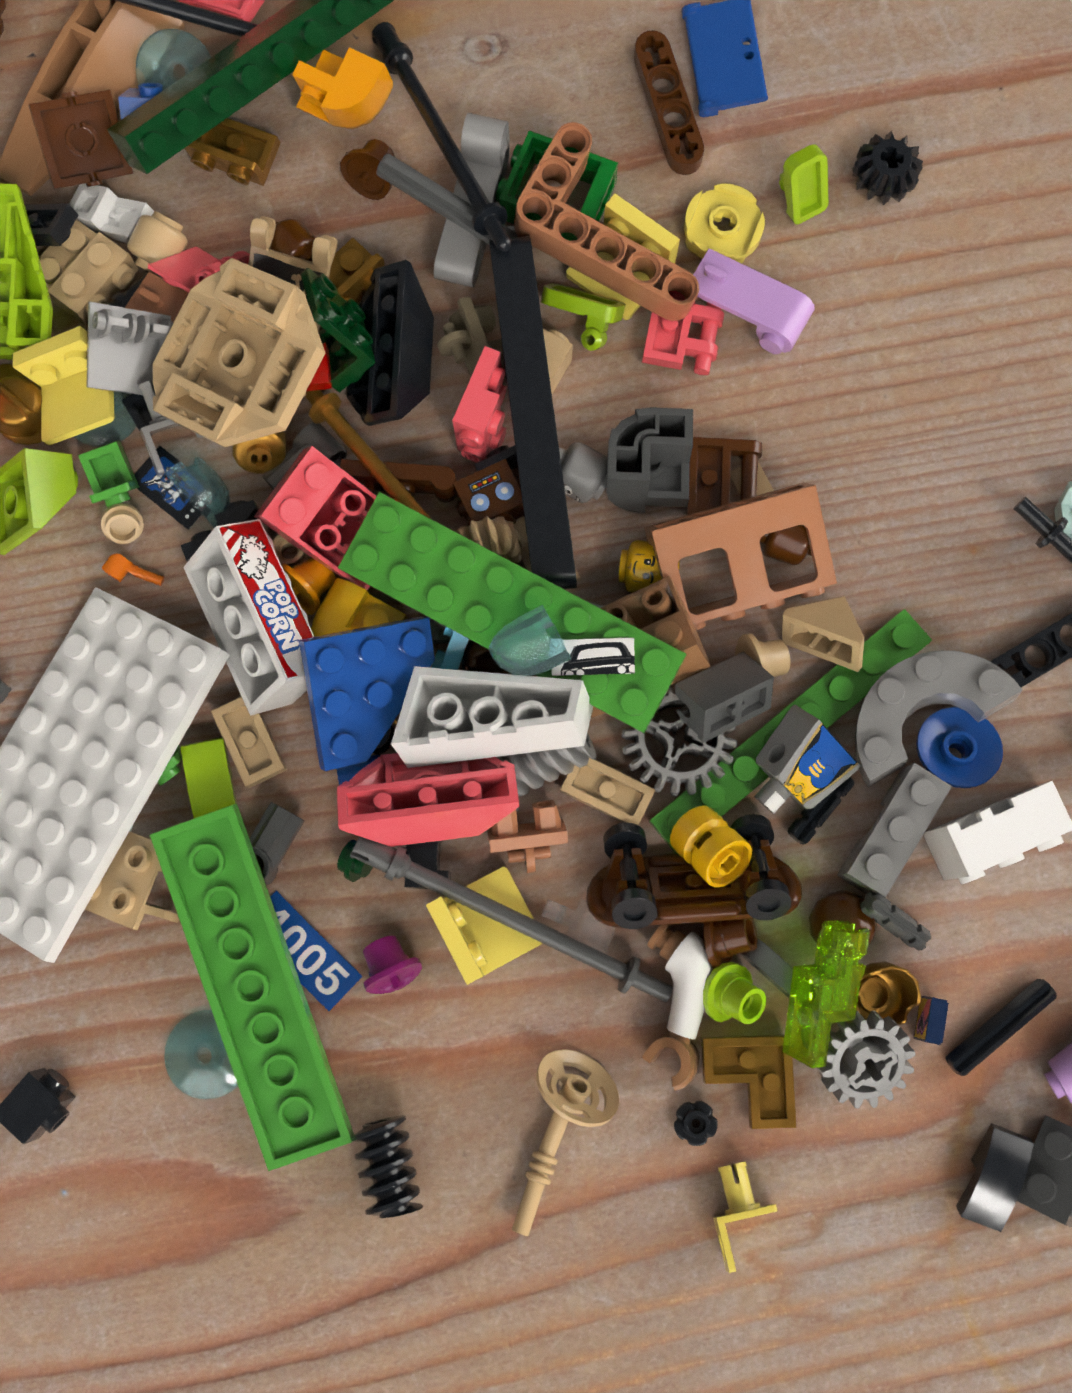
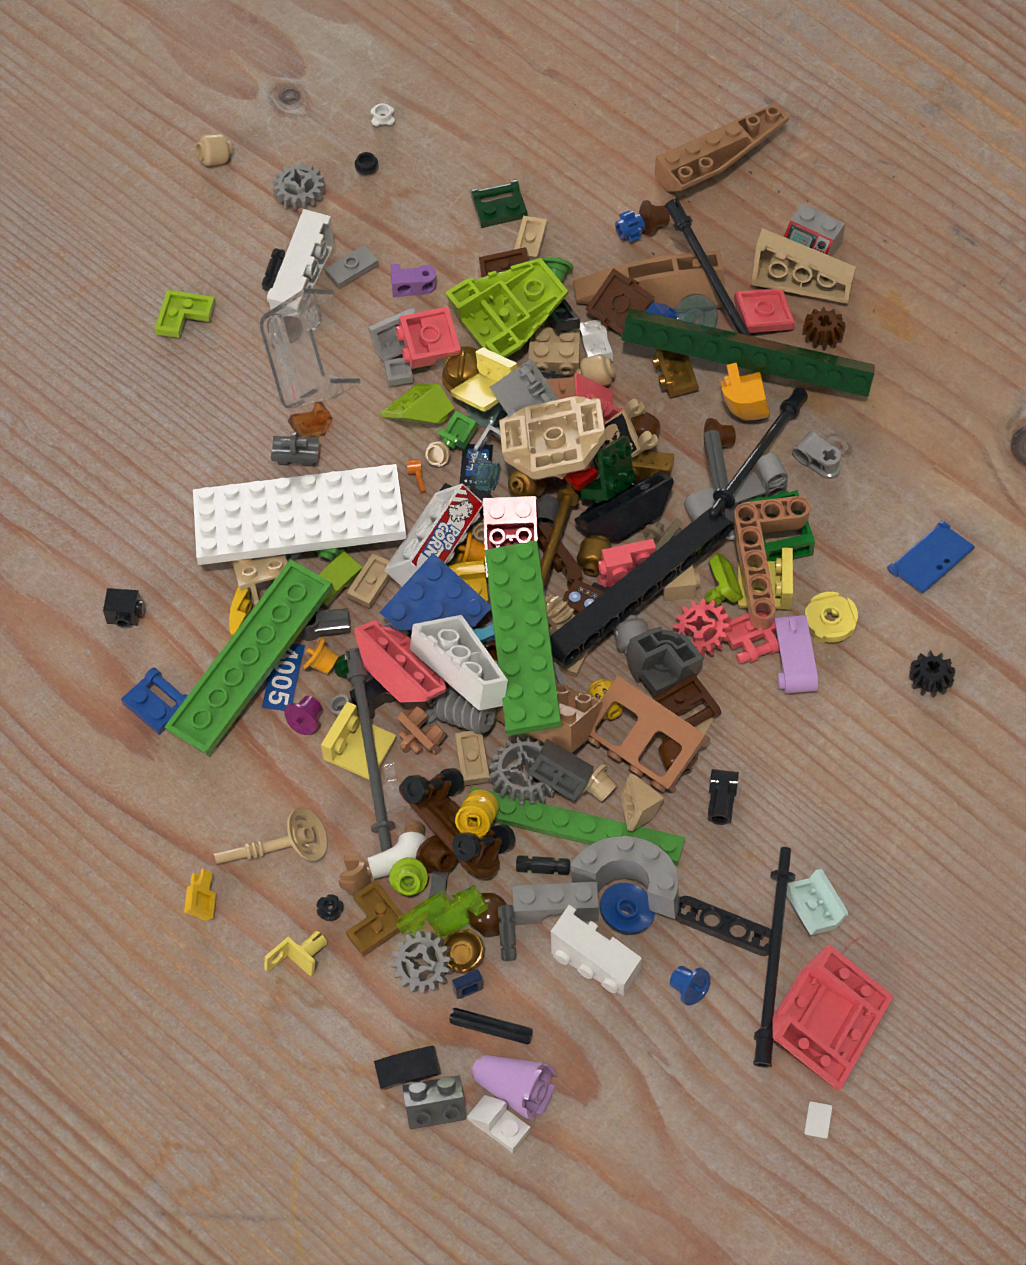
camera: 55 degrees right, 20 degrees down
(158, 941) = (239, 609): none -> yellow slope
(182, 1060) = (185, 667): clear light blue dish -> none
(218, 1165) = (148, 705): none -> blue plate
(319, 887) = (321, 657): none -> light orange piece
(387, 1168) = (203, 774): black piece -> none
(403, 903) = (338, 703): none -> light grey hinge
(428, 434) = (591, 552): none -> pearl gold head
(485, 75) = (817, 455): none -> light grey piece
(529, 644) = (509, 646): clear light blue brick -> none
(569, 1292) = (199, 898): none -> yellow plate
(598, 657) = (525, 681): sticker -> none
(619, 367) = (695, 619): none -> coral gear
(668, 102) = (883, 550): reddish brown beam -> none
(802, 762) = (556, 832): torso -> none
(805, 183) = (881, 636): lime piece -> none
(870, 516) = (722, 789): none -> black piece

